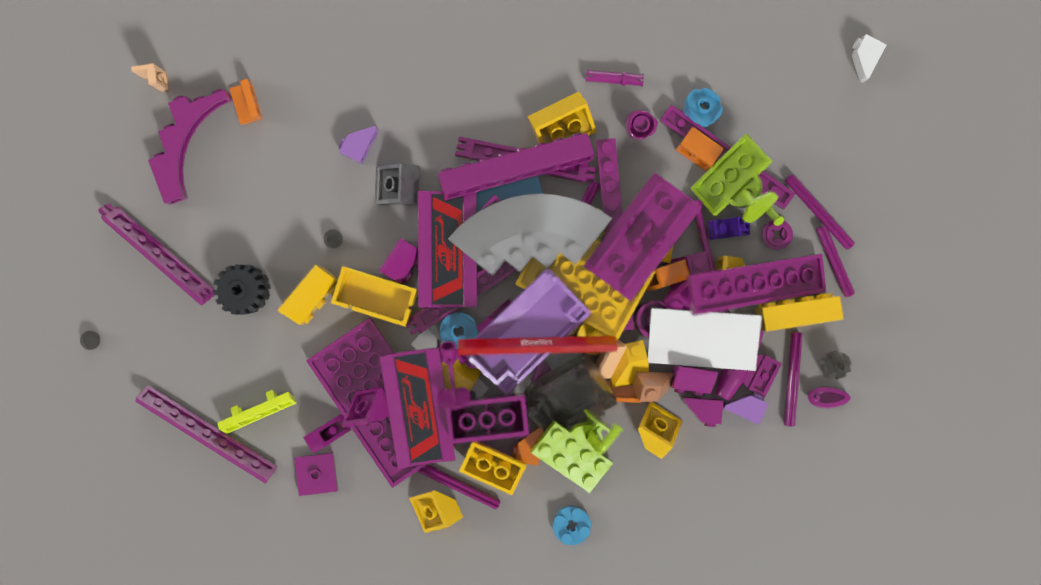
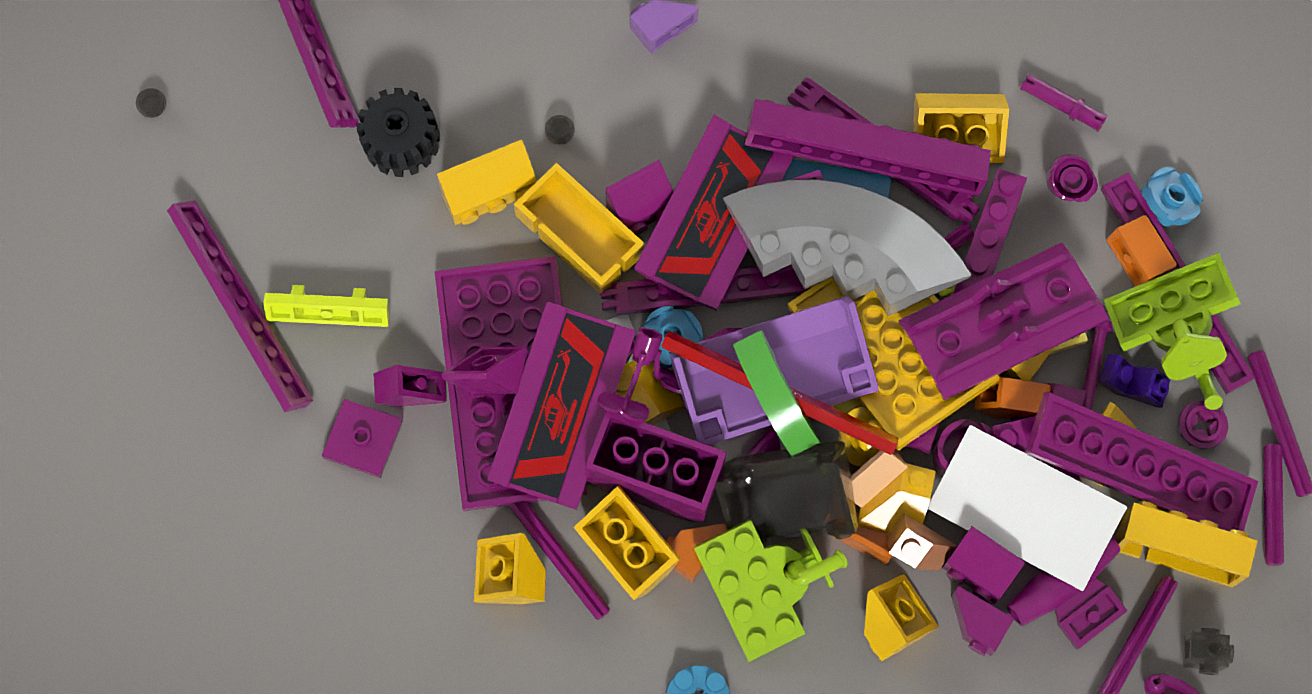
camera: 20 degrees right, 15 degrees down
(397, 184) = (688, 98): flat silver slope -> none
(534, 350) = (774, 393): none -> bright green slope
(748, 407) = (1044, 650): medium lavender slope -> none

